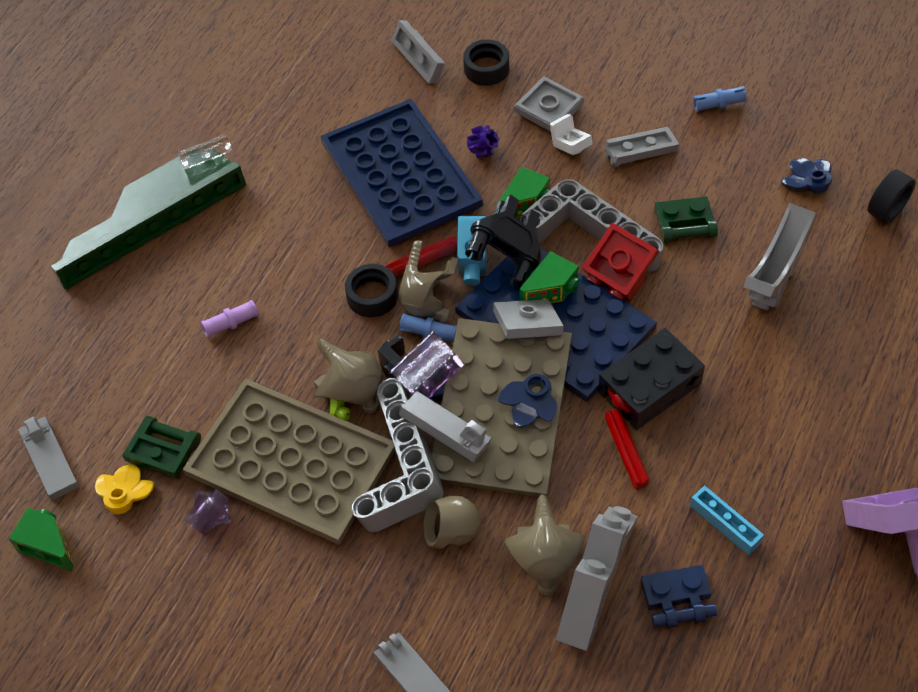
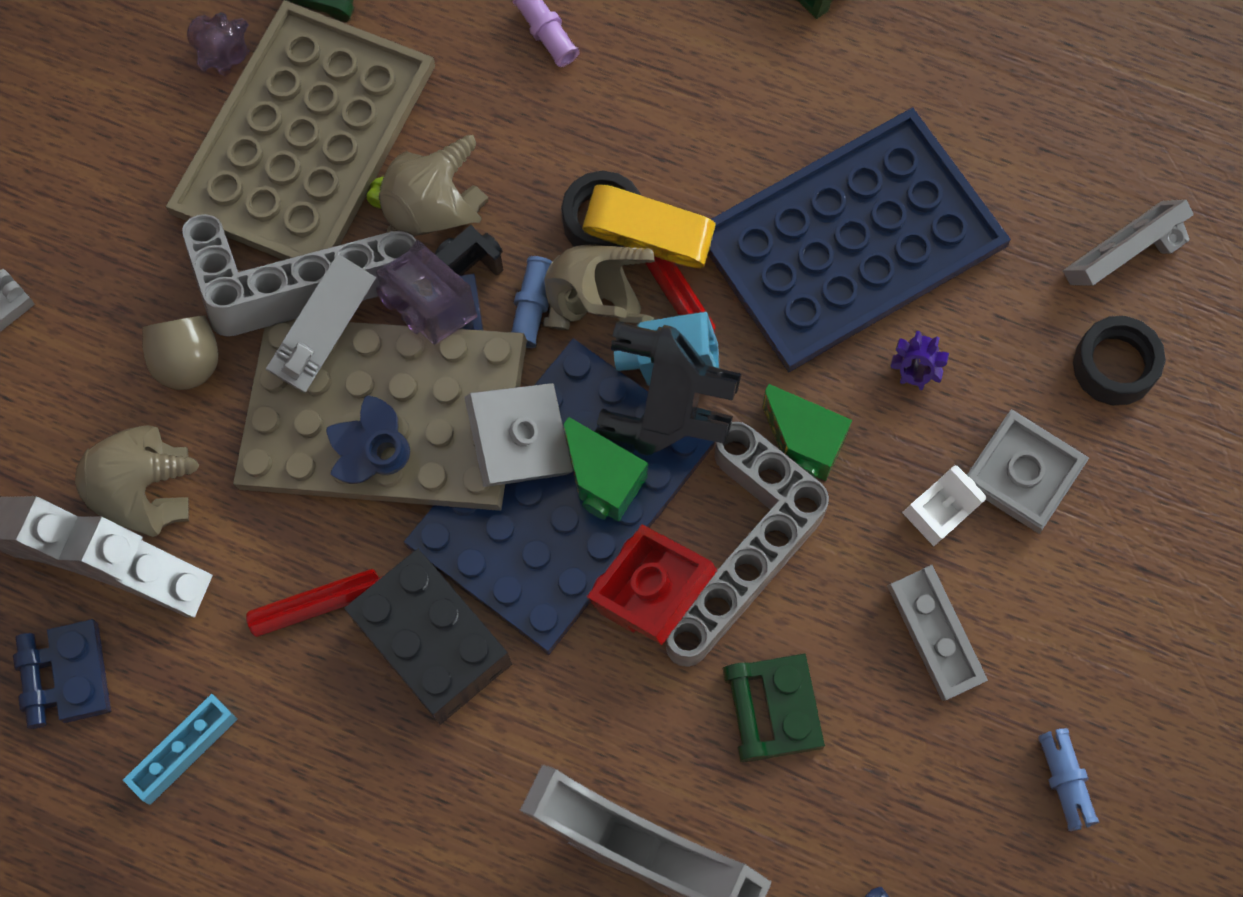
camera: 85 degrees right, 15 degrees up
(391, 254) = (647, 223): none -> yellow beam

